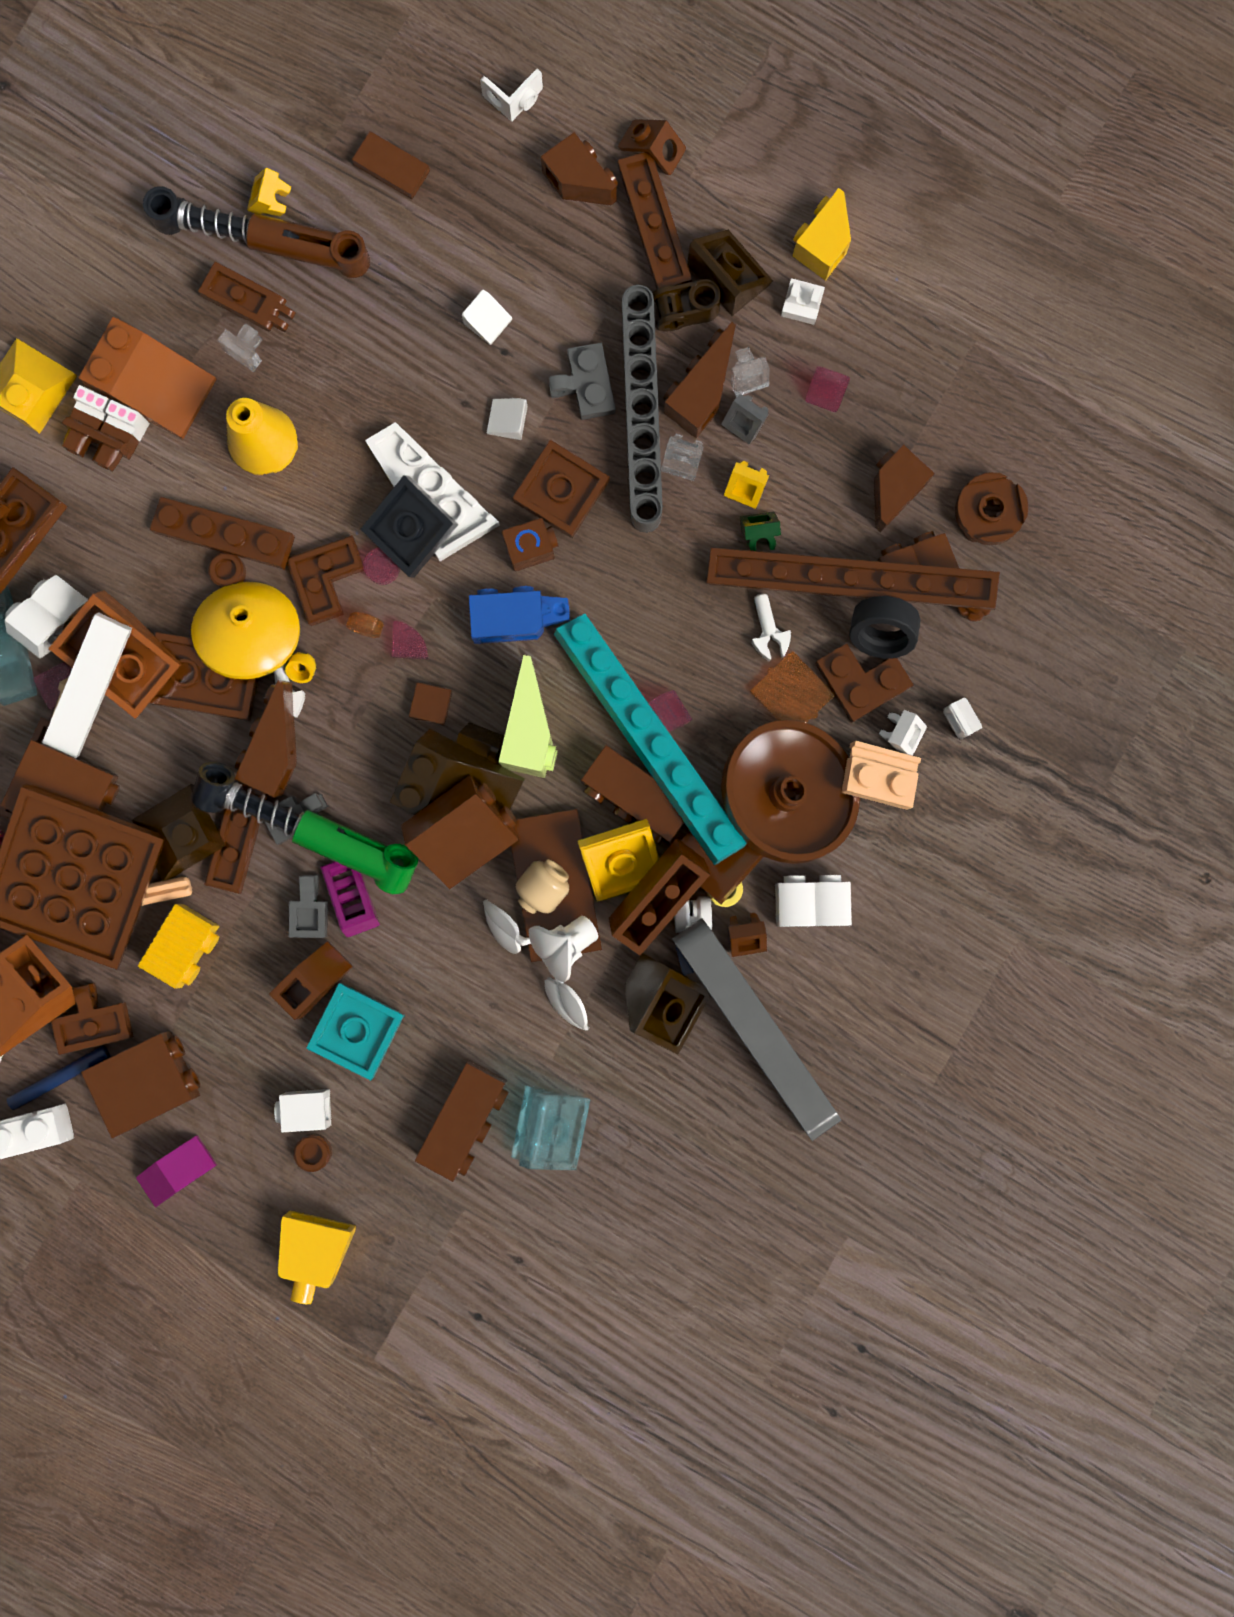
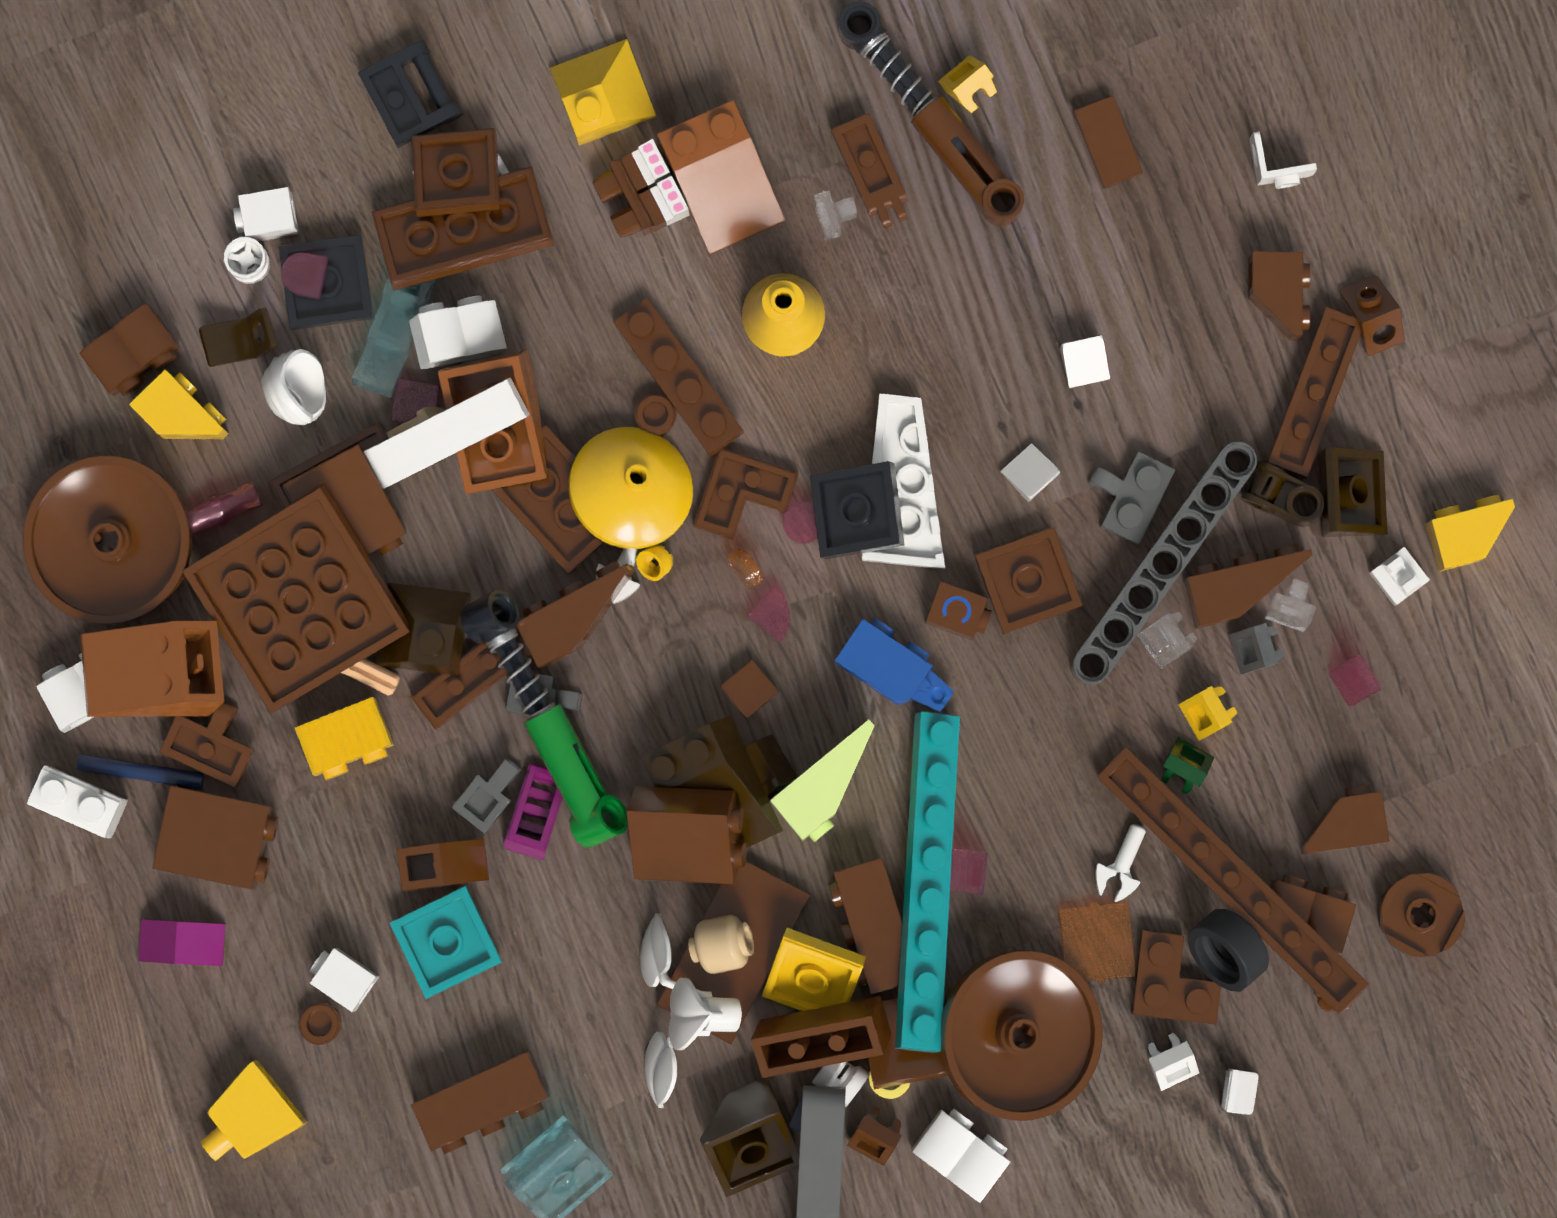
camera: 40 degrees right, 0 degrees up
(881, 775) = (1118, 1085): light nougat plate -> none

